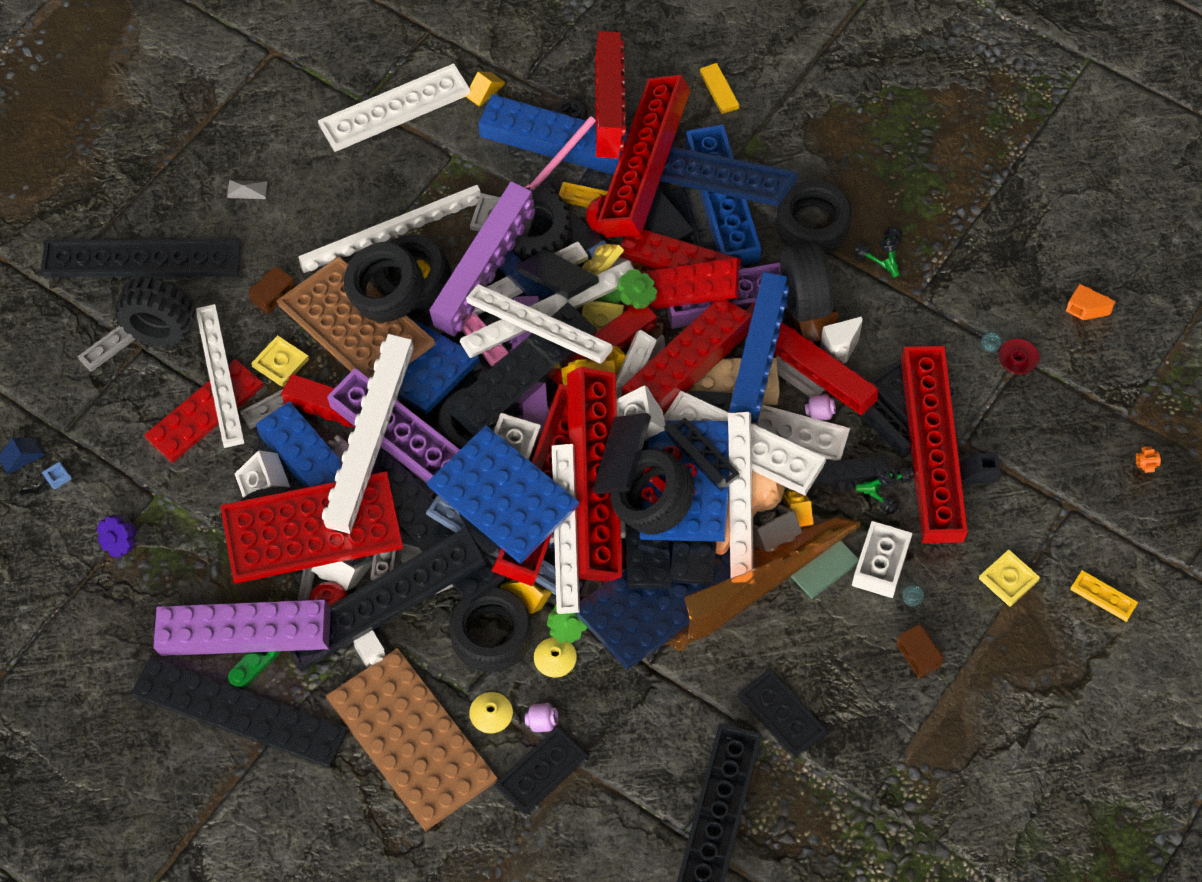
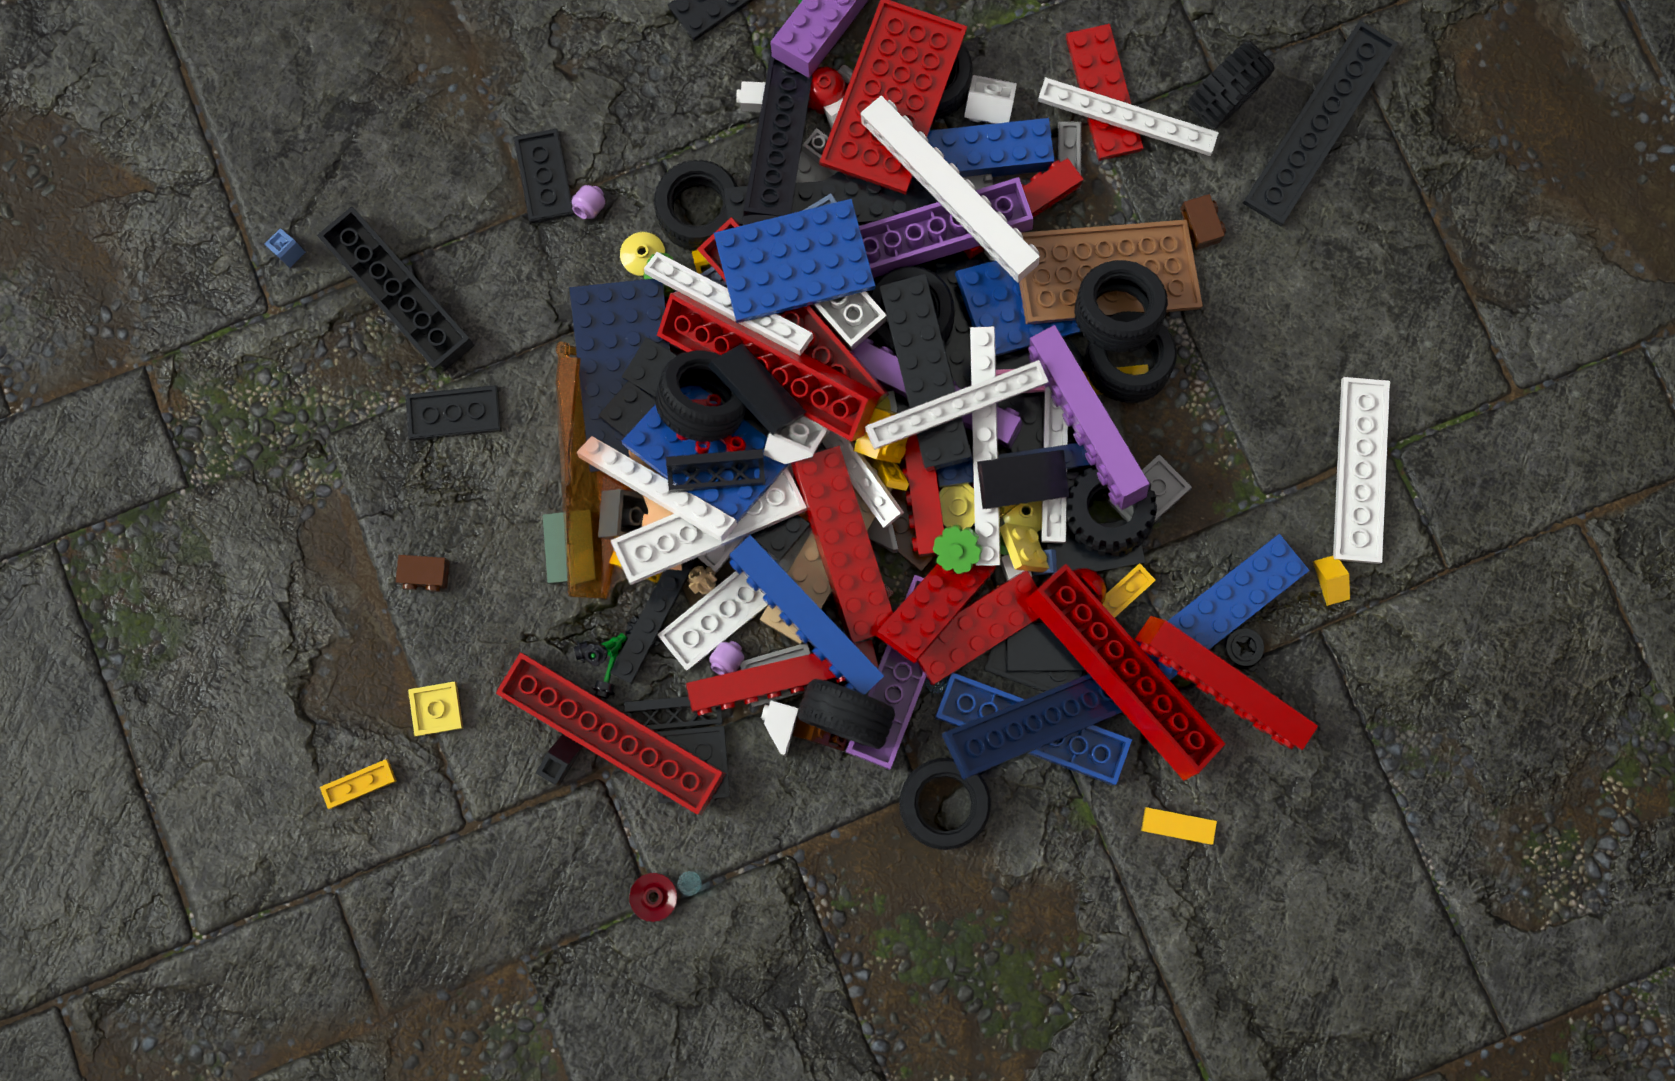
camera: 125 degrees right, 20 degrees up
(105, 348) = (1230, 31): light grey tile -> none
(247, 189) = (1346, 269): light grey slope -> none
(280, 361) = (1113, 186): light yellow plate -> none
(390, 228) = (1203, 386): white plate -> none
(411, 739) = (648, 86): medium nougat plate -> none
(491, 721) = (630, 177): light yellow dish -> none
(562, 153) = (1166, 541): bright pink bar -> none
(882, 559) = (529, 599): white brick -> none
(889, 244) = (855, 850): black plant -> none
(912, 595) = (480, 607): clear light blue plate -> none
(1089, 304) = (665, 1015): orange slope -> none
(1148, 459) = (458, 937): orange gear -> none

